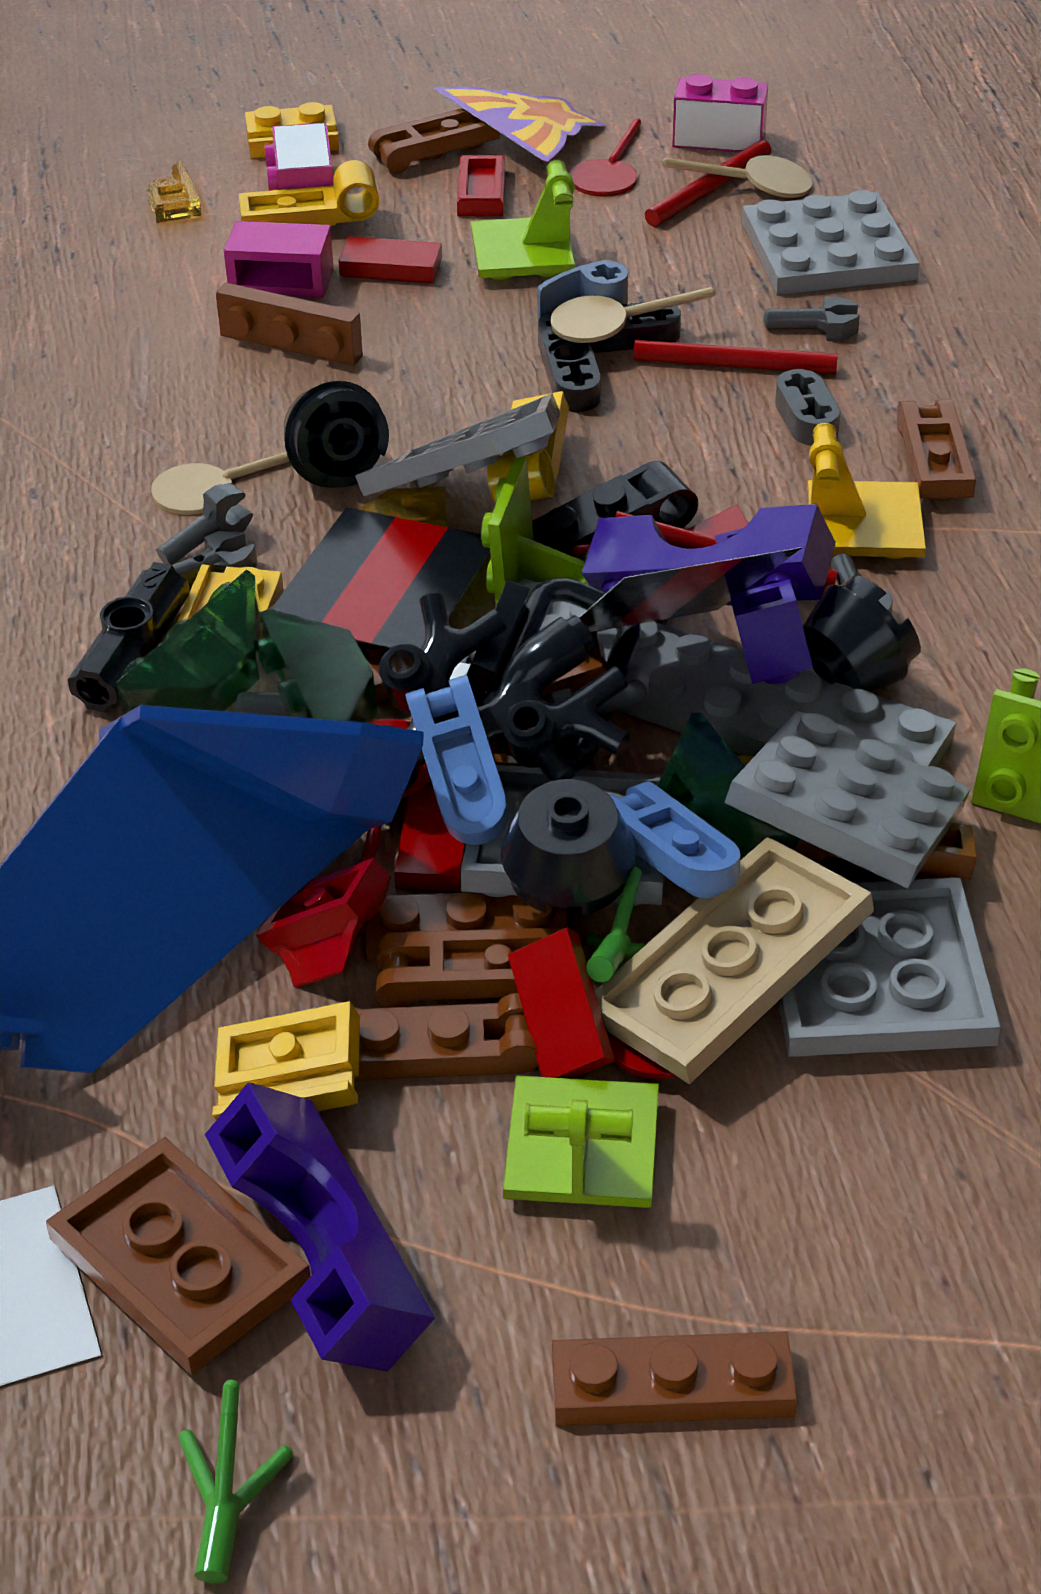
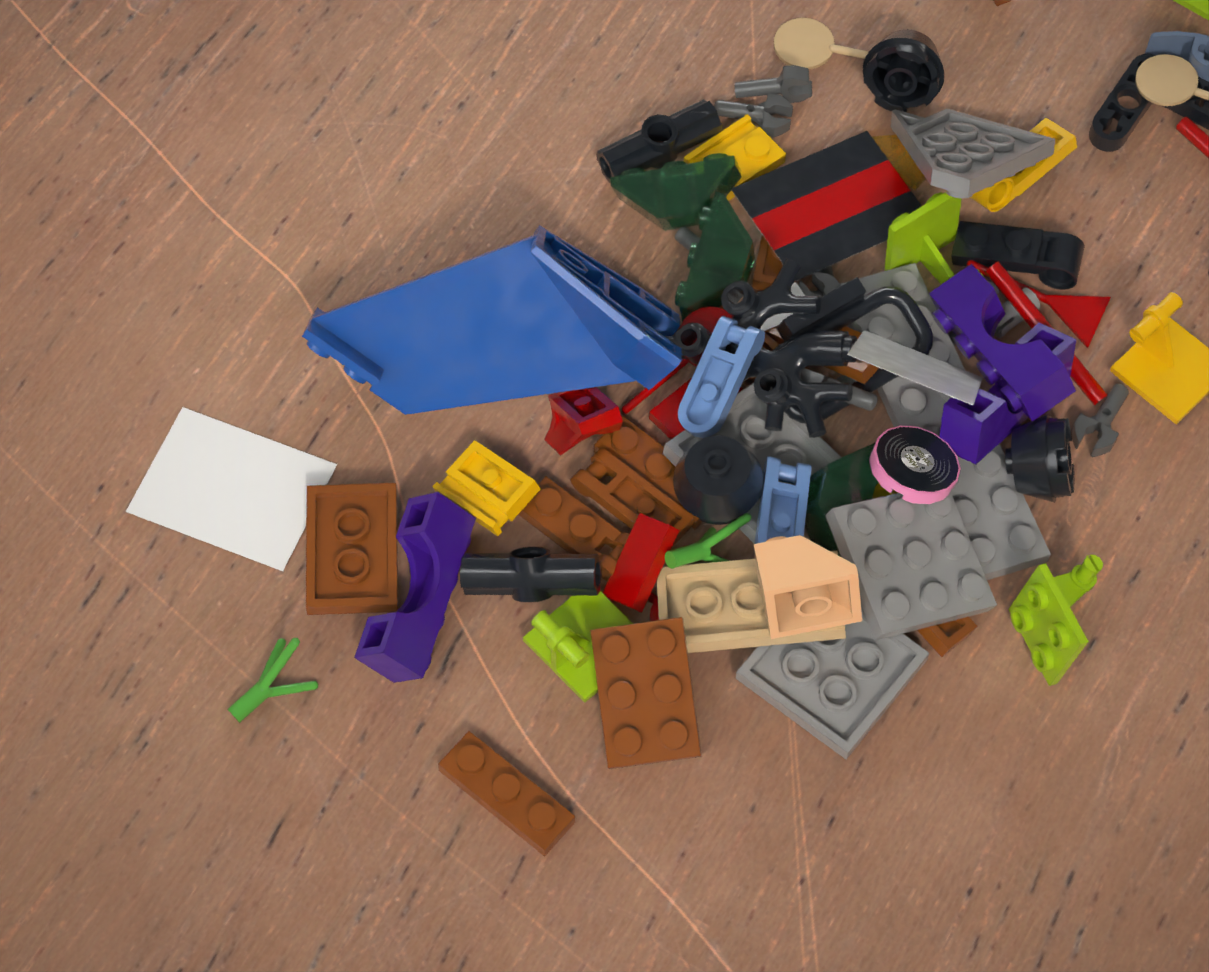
camera: 40 degrees right, 20 degrees up
(444, 1110) = (530, 574): none -> black piece
(725, 1130) = (645, 693): none -> dark orange plate
(756, 699) = (915, 464): none -> tile
(799, 859) = (805, 586): none -> light nougat slope

